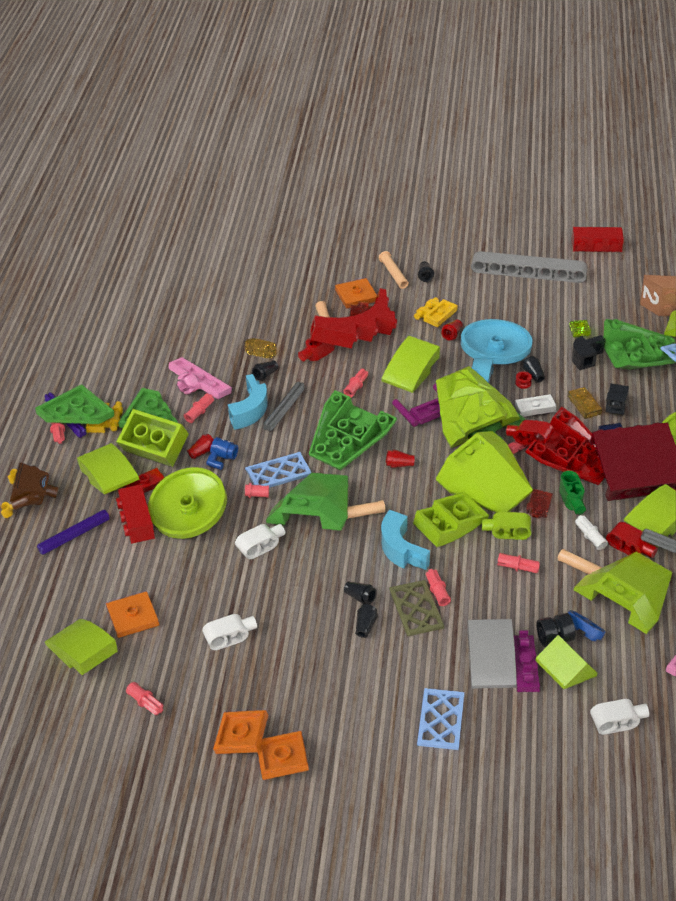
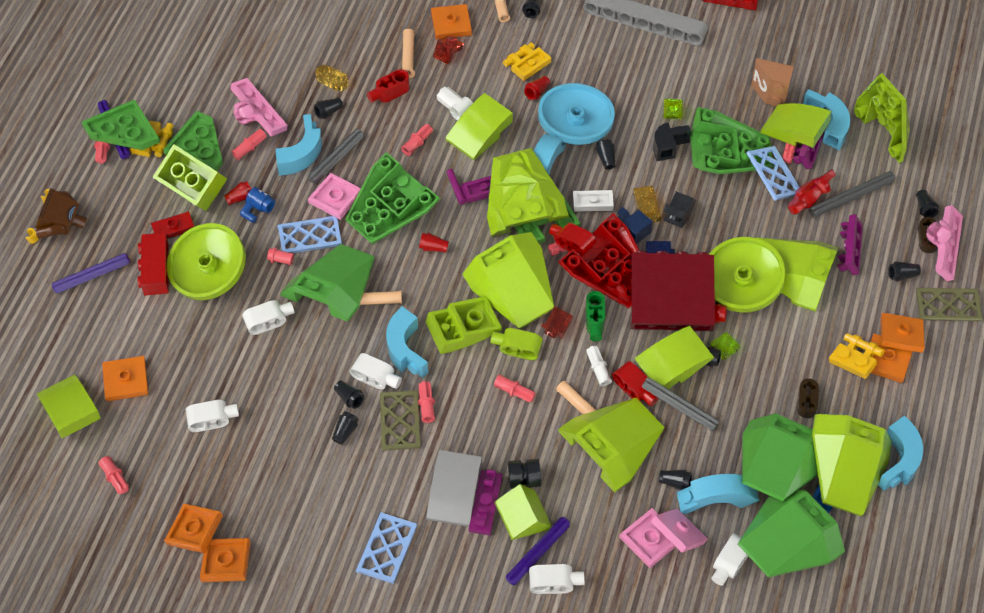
camera: 10 degrees right, 15 degrees up
(107, 468) = (138, 206): lime slope -> none
(293, 436) = (334, 196): none -> bright pink plate
(363, 326) = (418, 76): red arch -> none
(379, 570) = (374, 372): none -> white piece
(381, 350) = (454, 102): none -> white piece
(523, 380) = (592, 160): red bush -> none
(585, 413) = (637, 223): none -> dark blue brick
(591, 630) = (556, 472): blue plate -> none
(591, 696) = (537, 550): none -> dark purple axle

